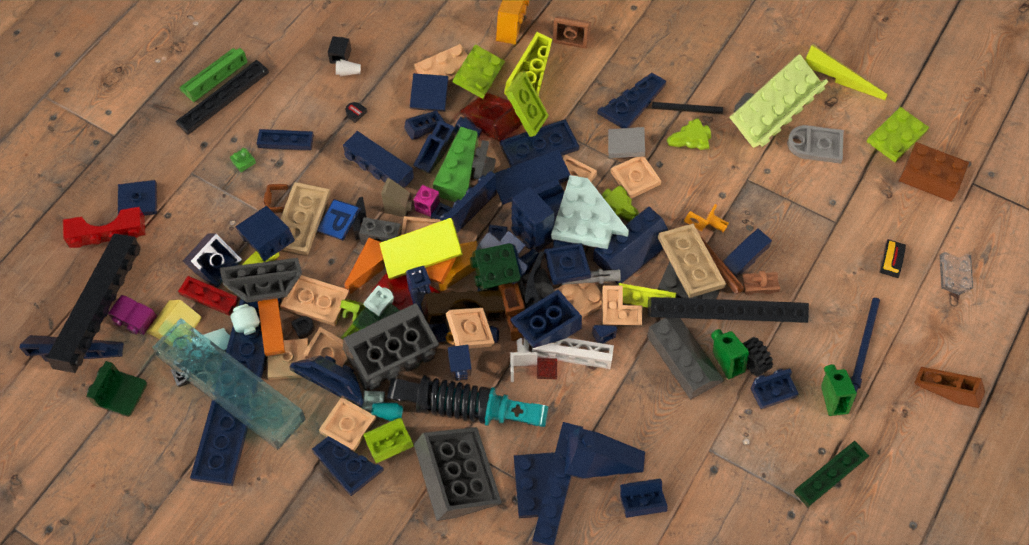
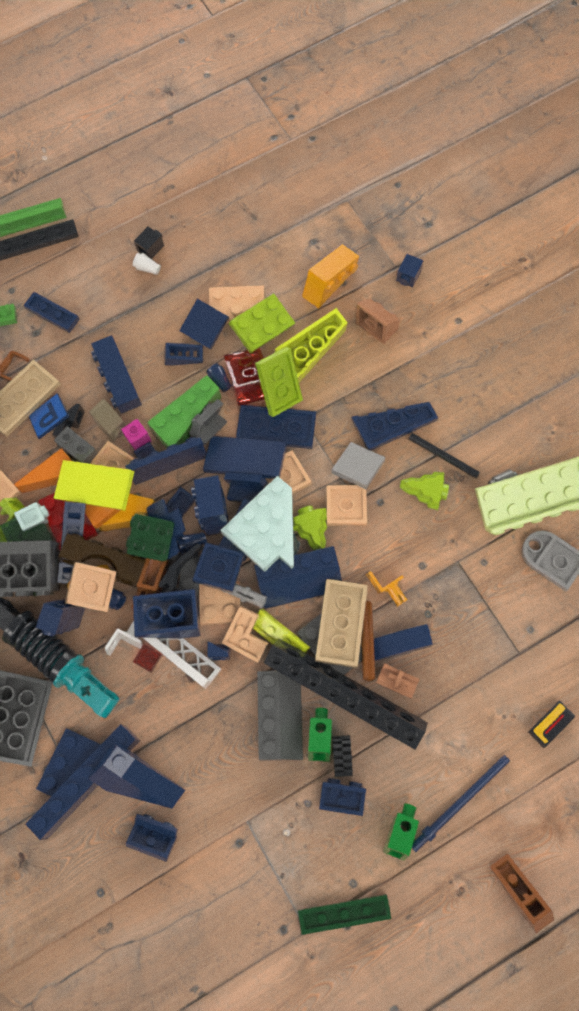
camera: 35 degrees right, 10 degrees up
(355, 111) = (129, 311): black tile -> none
(435, 146) = (177, 383): dark blue slope -> none

